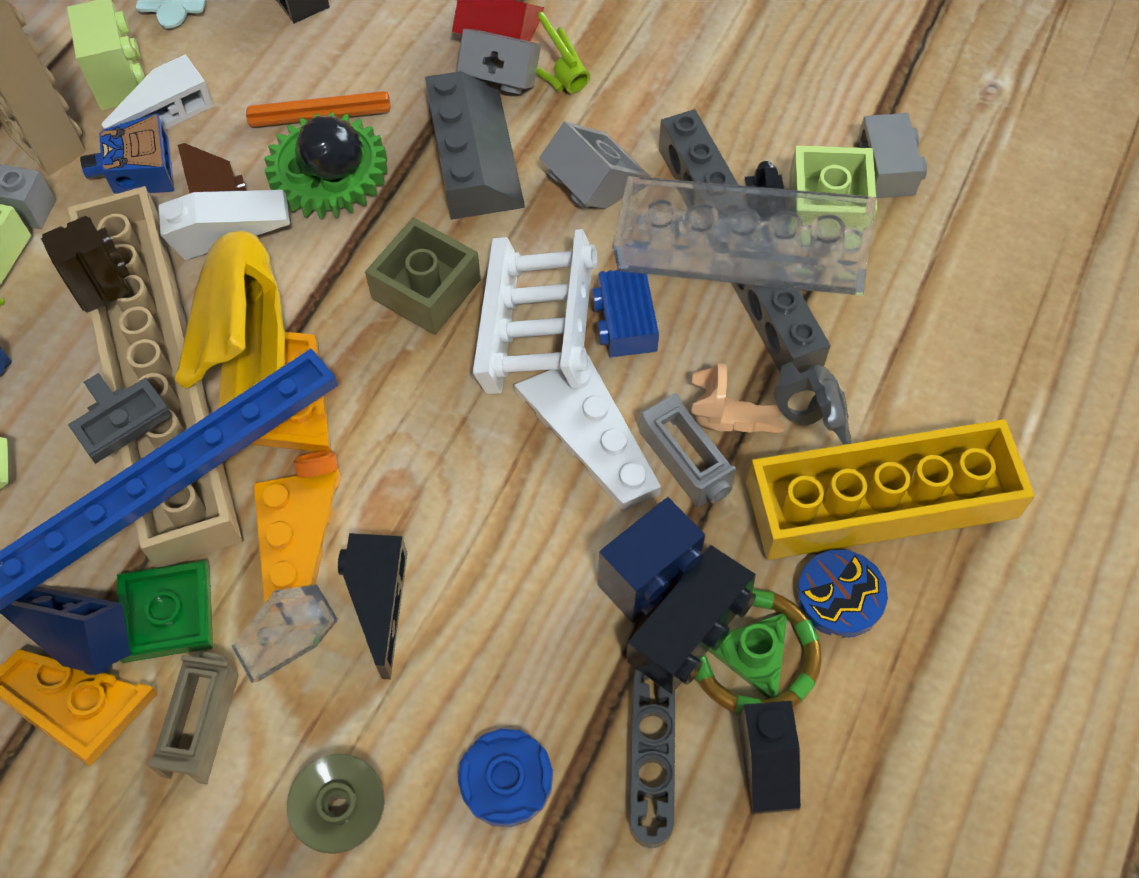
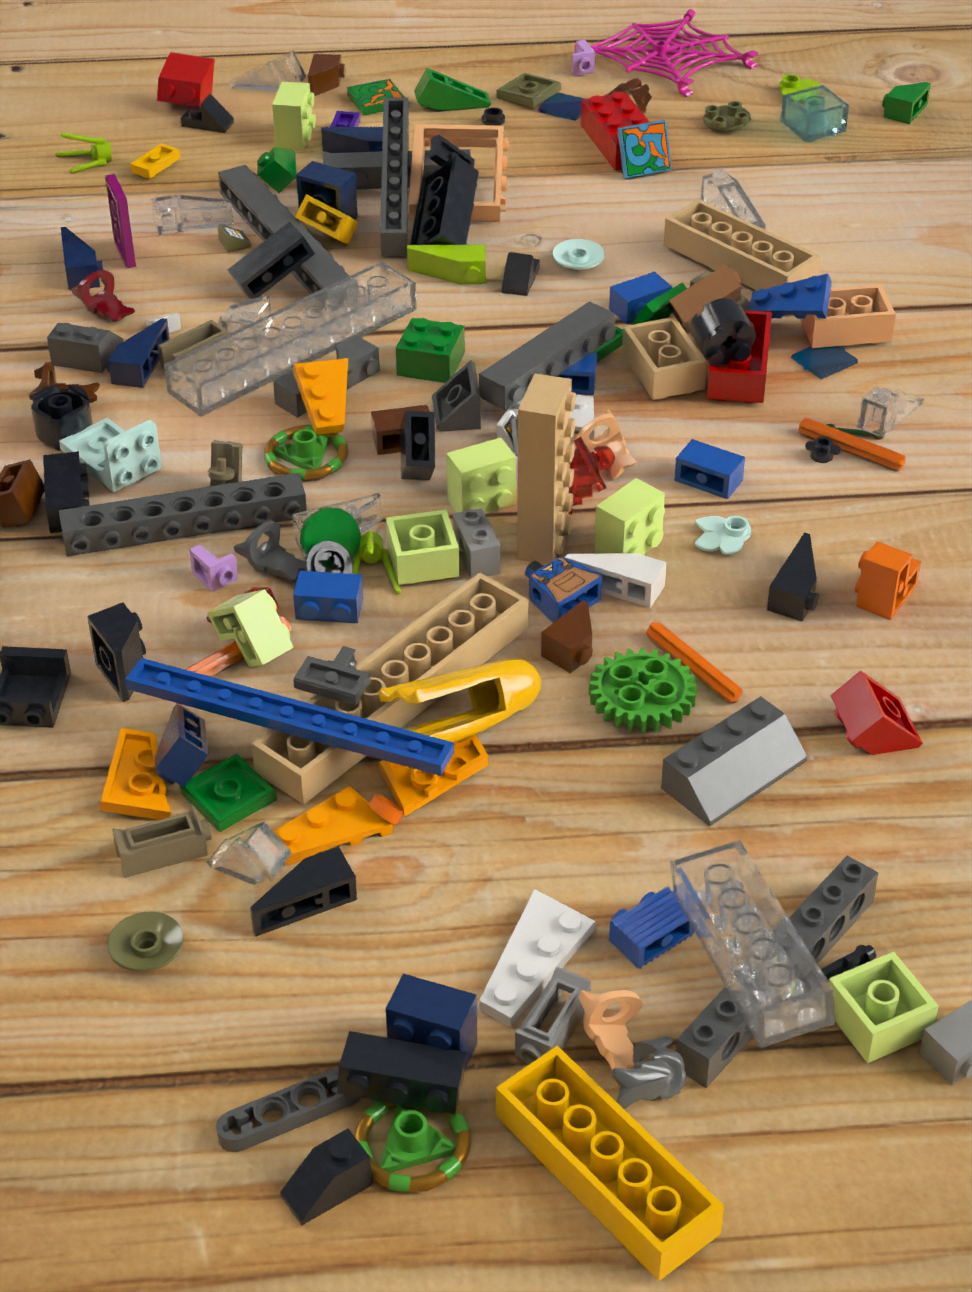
camera: 60 degrees right, 20 degrees down
(85, 263) = (428, 597): dark brown brick -> none
(200, 218) = (538, 646): white slope -> none
(328, 148) = (642, 674): black hair -> none
(423, 275) = (582, 788): olive brick -> none
(502, 297) = (593, 847): white fence -> none
(505, 778) = (220, 1032): blue tile -> none
(519, 59) = (827, 735): light grey brick -> none
(569, 68) = (862, 788): lime plant -> none
(589, 165) = (782, 842): light grey slope -> none
(842, 593) = (499, 1178): blue tile -> none

